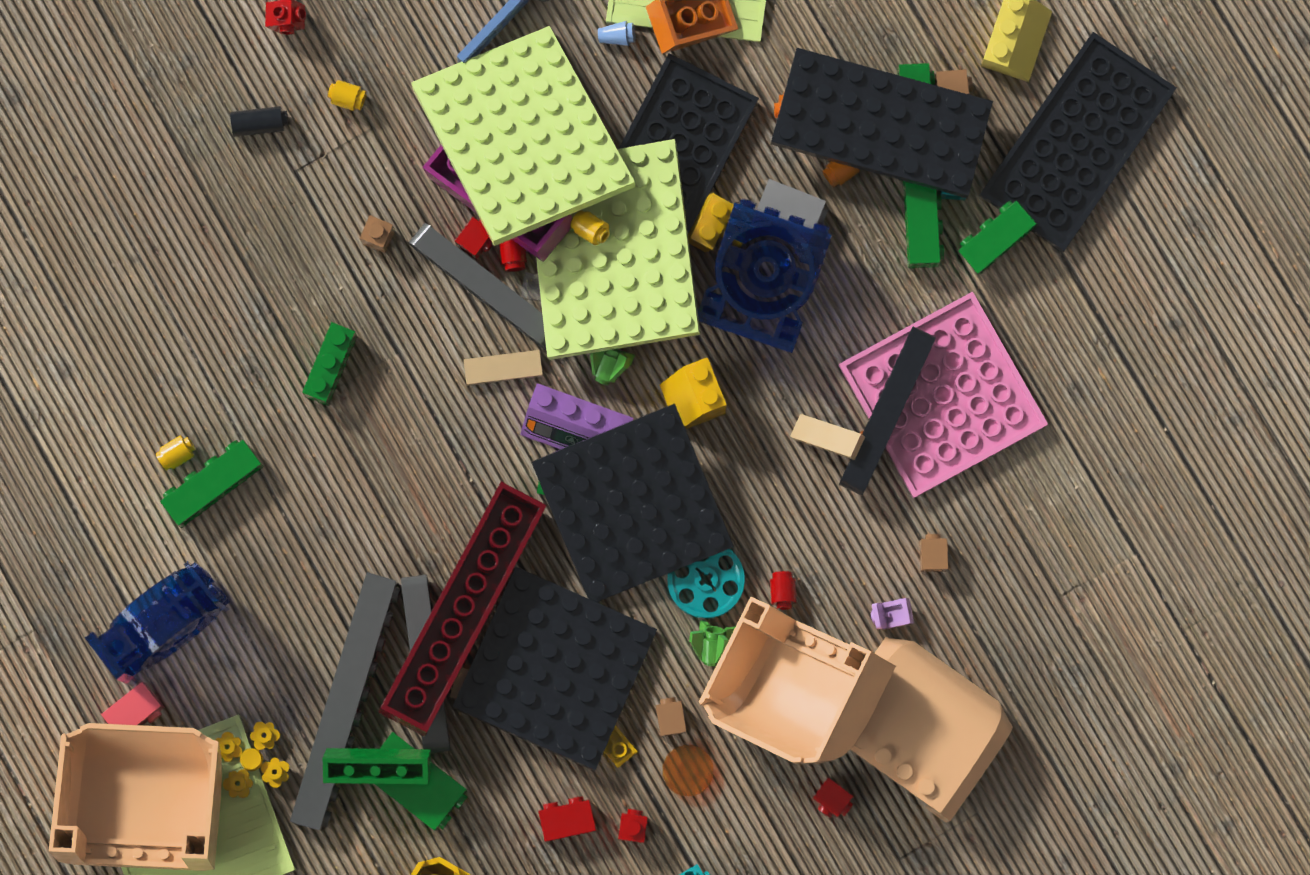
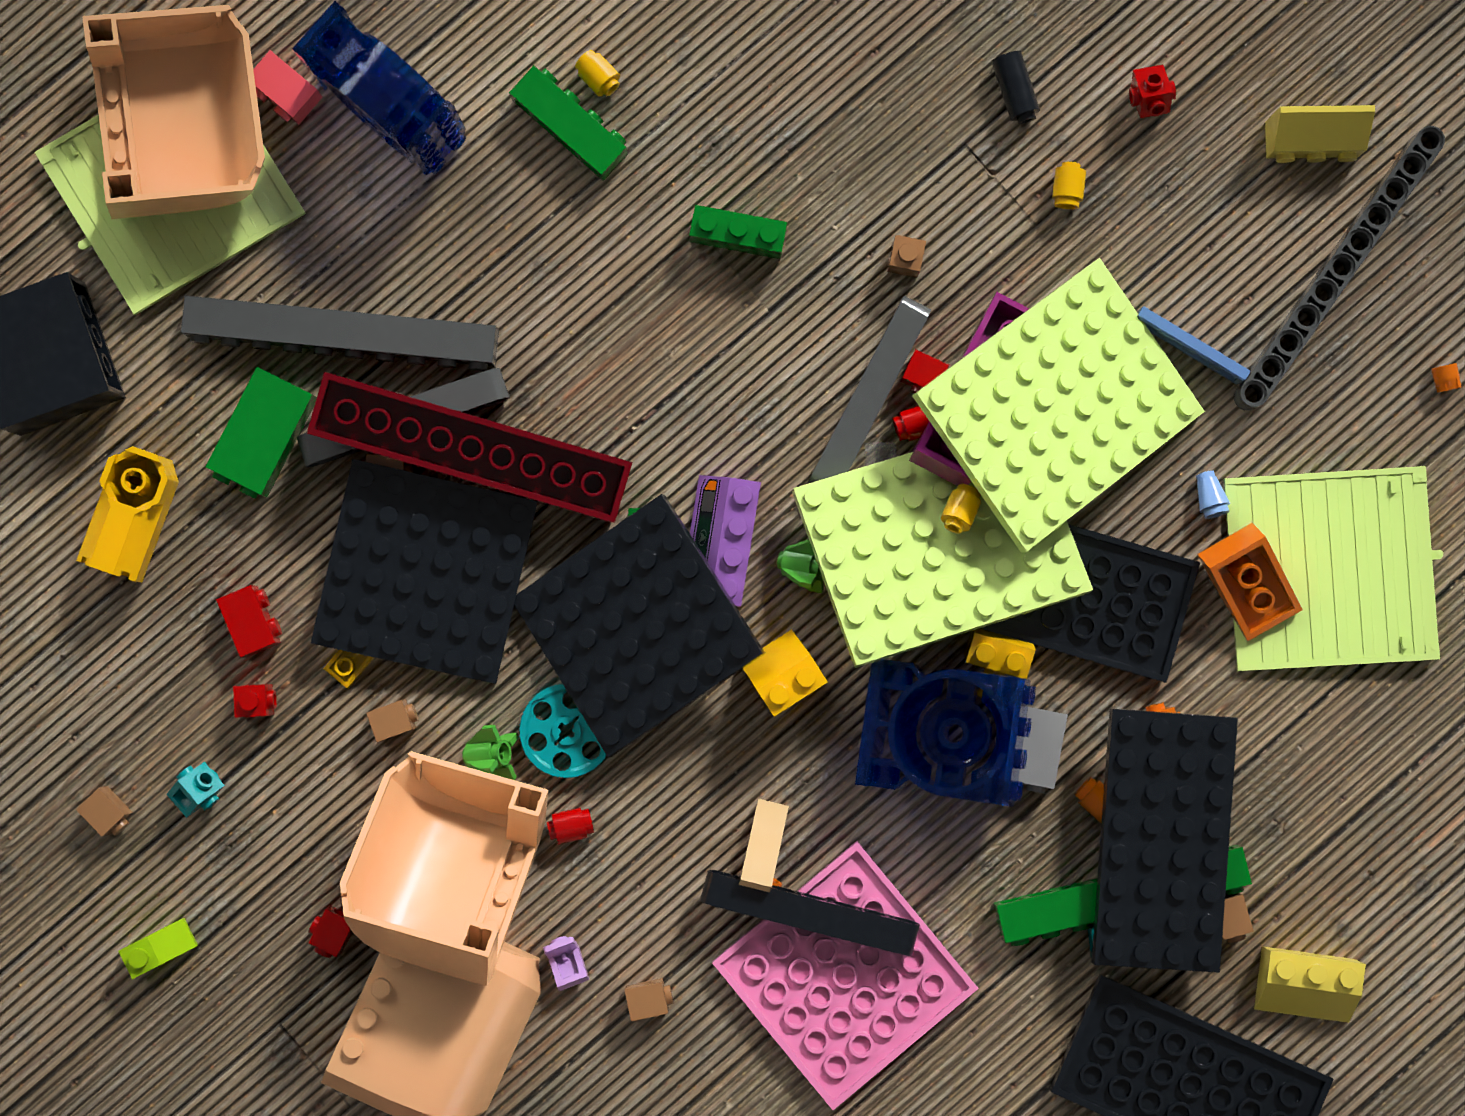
camera: 80 degrees right, 5 degrees up
(252, 760) = (253, 237): yellow plant -> none
(376, 766) = (262, 383): green brick -> none
(503, 367) = (775, 438): tan tile -> none
(688, 770) = (335, 752): clear orange tile -> none
(997, 236) = (1052, 1007): green brick -> none

